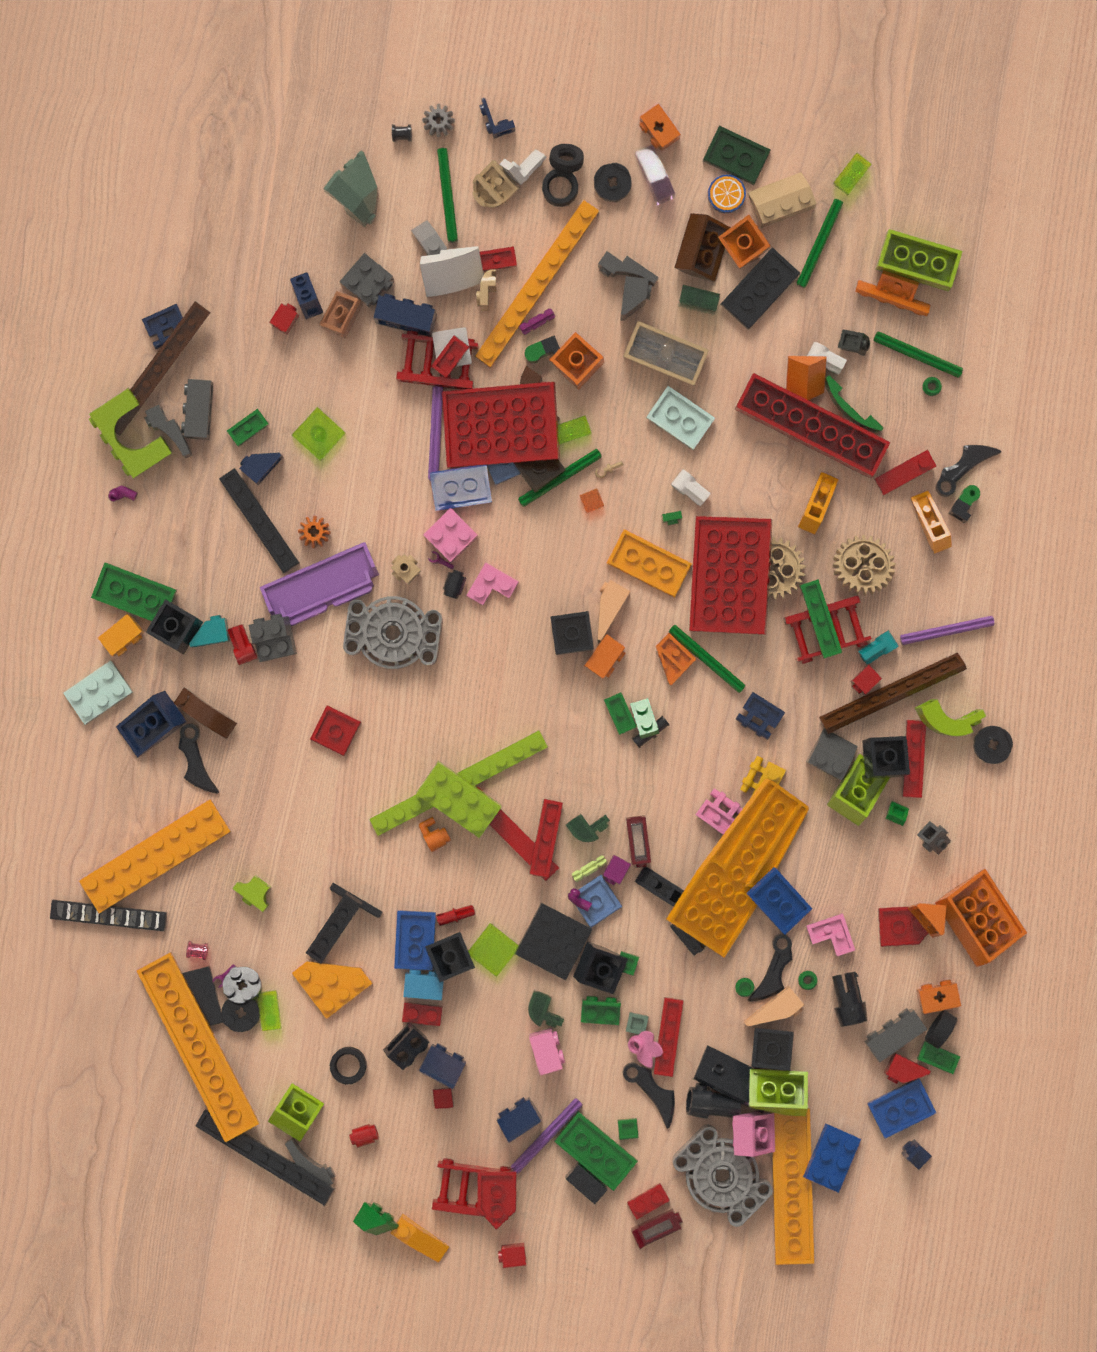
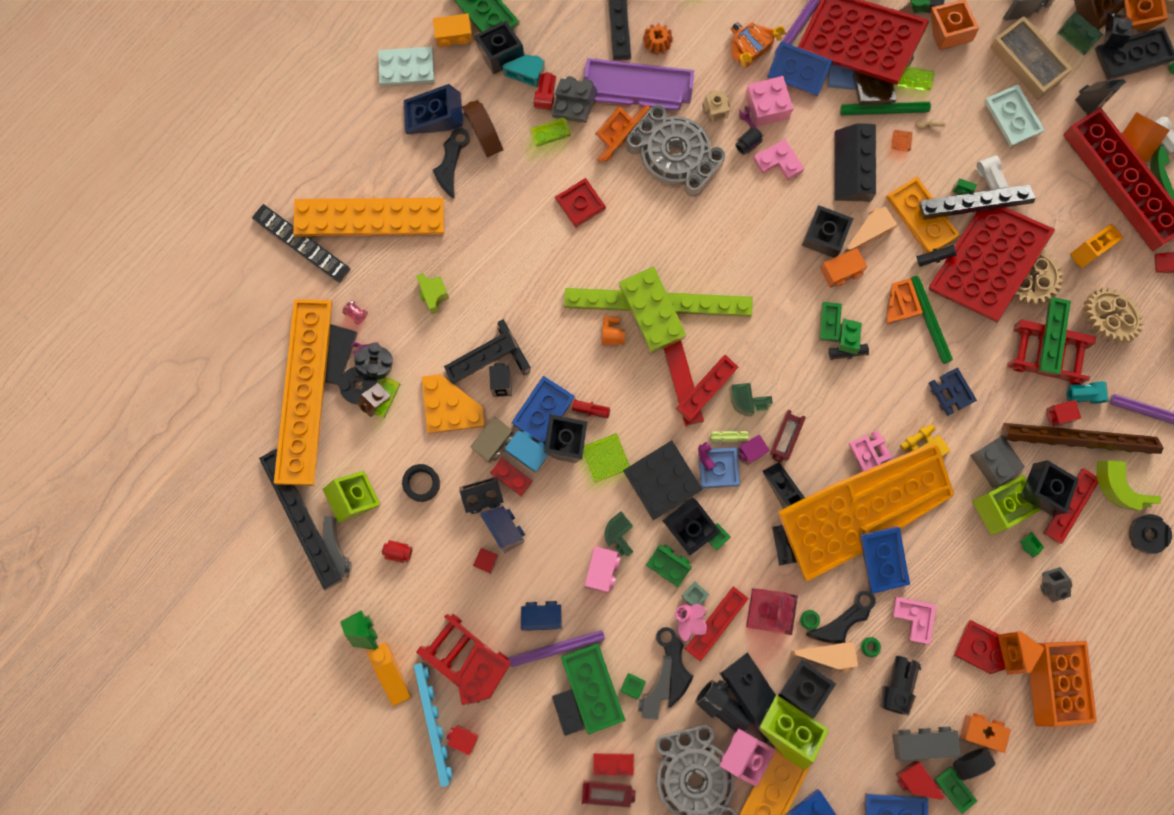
camera: 25 degrees right, 10 degrees down
(264, 1019) = (373, 399): none -> bracket
(268, 680) = (550, 132): none -> clear neon green plate
(328, 642) = (616, 129): none -> orange bracket
(363, 938) = (500, 380): none -> black brick
(387, 993) = (492, 440): none -> dark tan brick
(402, 486) = (753, 42): none -> orange torso
(484, 1261) = (435, 732): none -> medium azure plate
(561, 550) = (855, 163): none -> black slope
(650, 1136) = (650, 704): none -> dark grey slope
(680, 598) = (936, 255): none -> black pin
(689, 526) = (976, 202): none -> plate
(709, 999) = (772, 611): none -> clear pink slope
(729, 278) = (1117, 30): none -> black slope
(743, 358) = (1098, 94): none -> black slope

